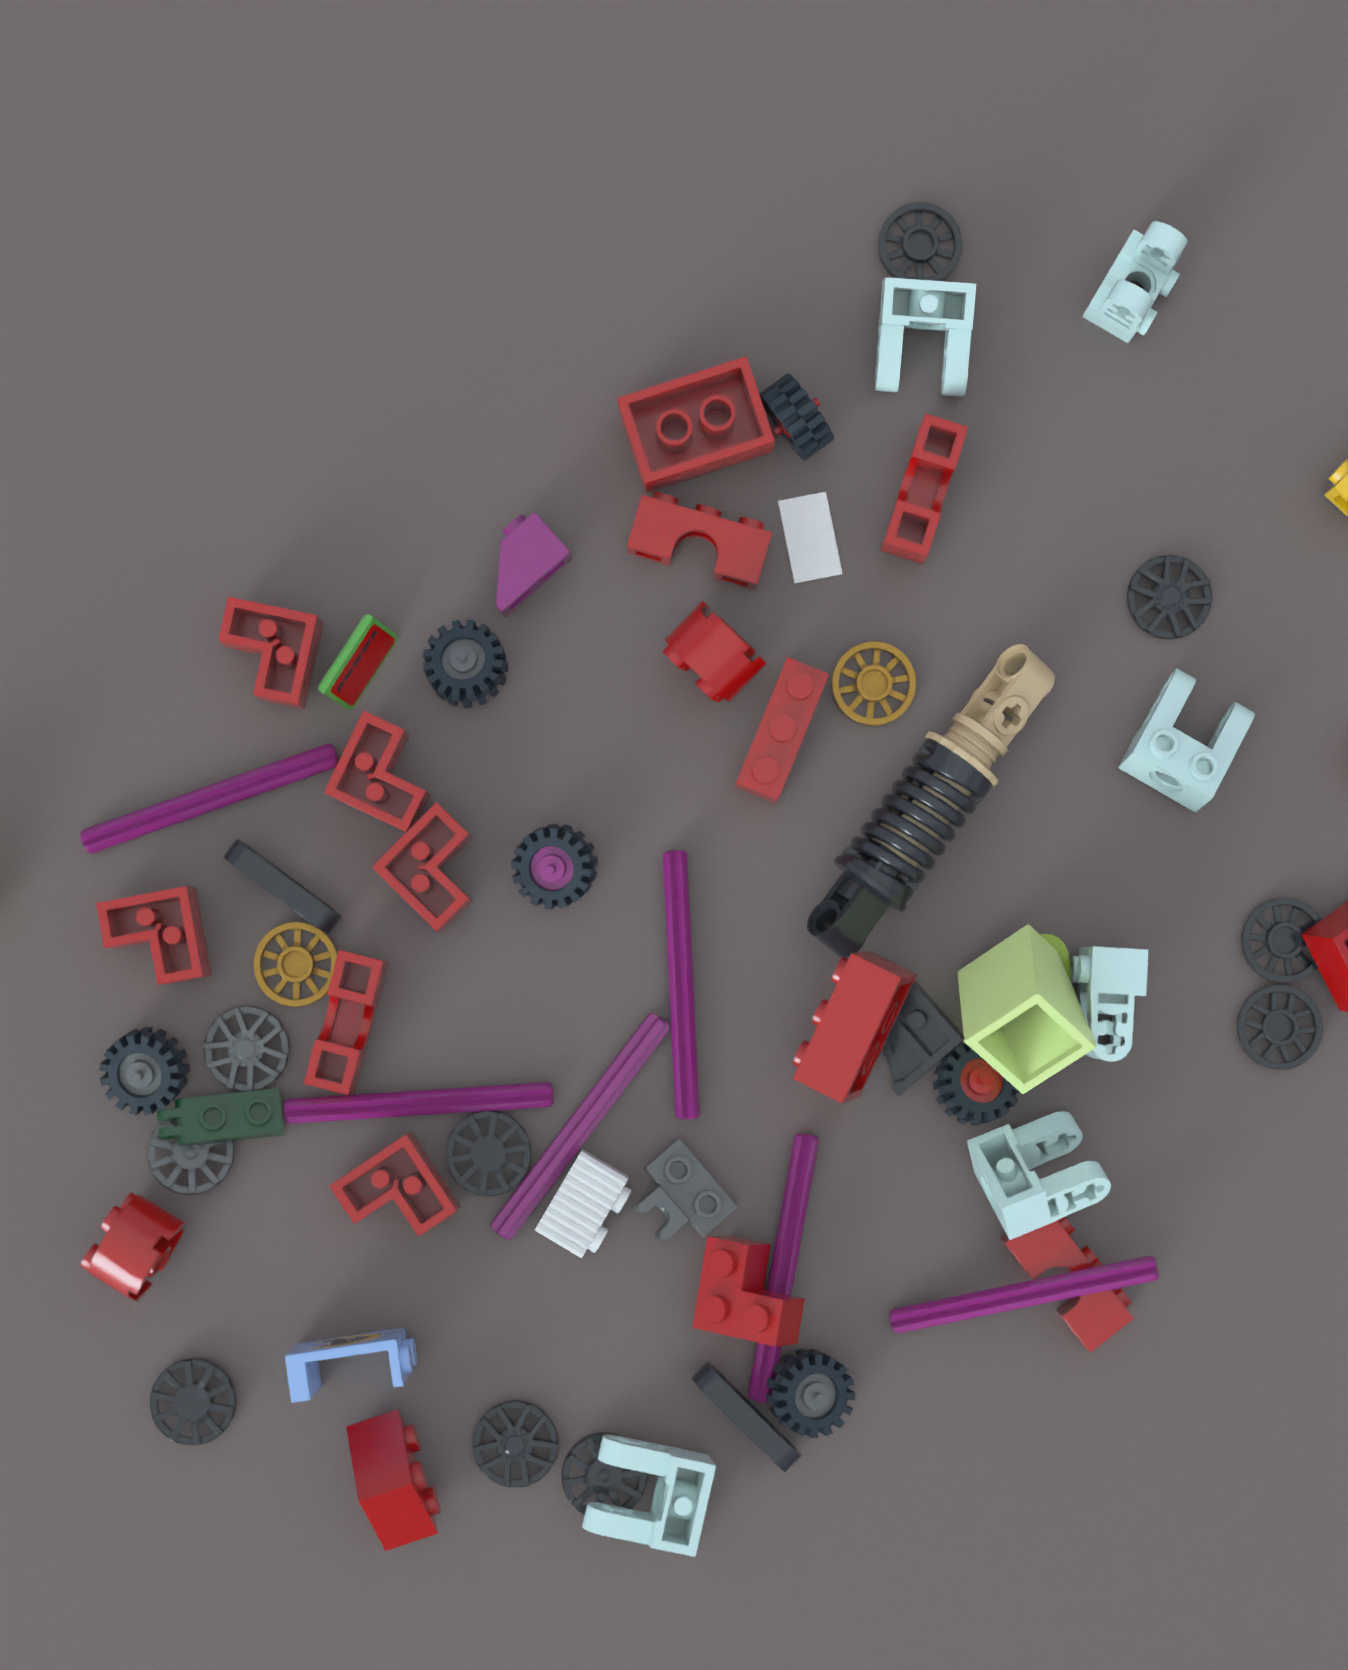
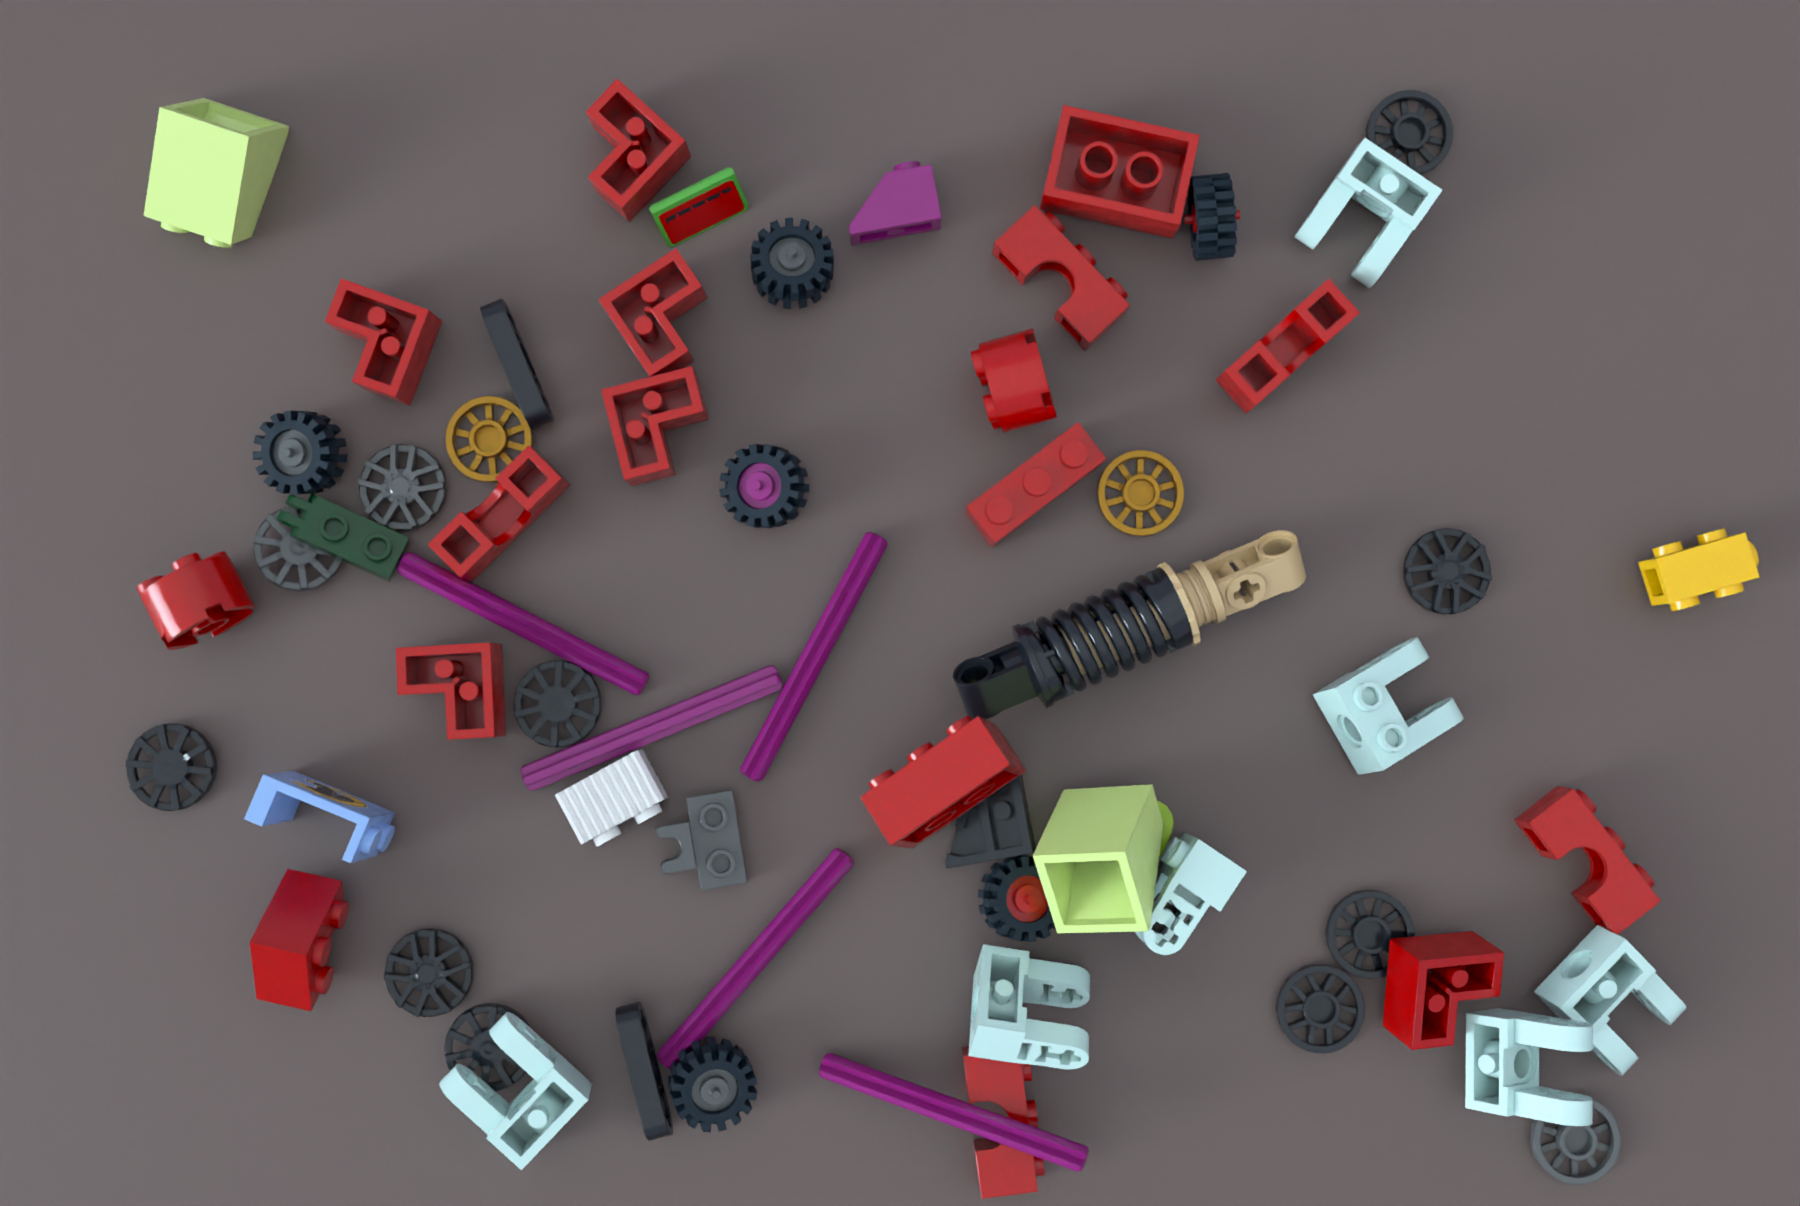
camera: 30 degrees right, 0 degrees up
(209, 798) = (498, 250): magenta axle -> none
(734, 1296) = (694, 963): red brick -> none
(810, 537) = (1160, 333): white sticker -> none
(1145, 258) = (1585, 273): light aqua brick -> none

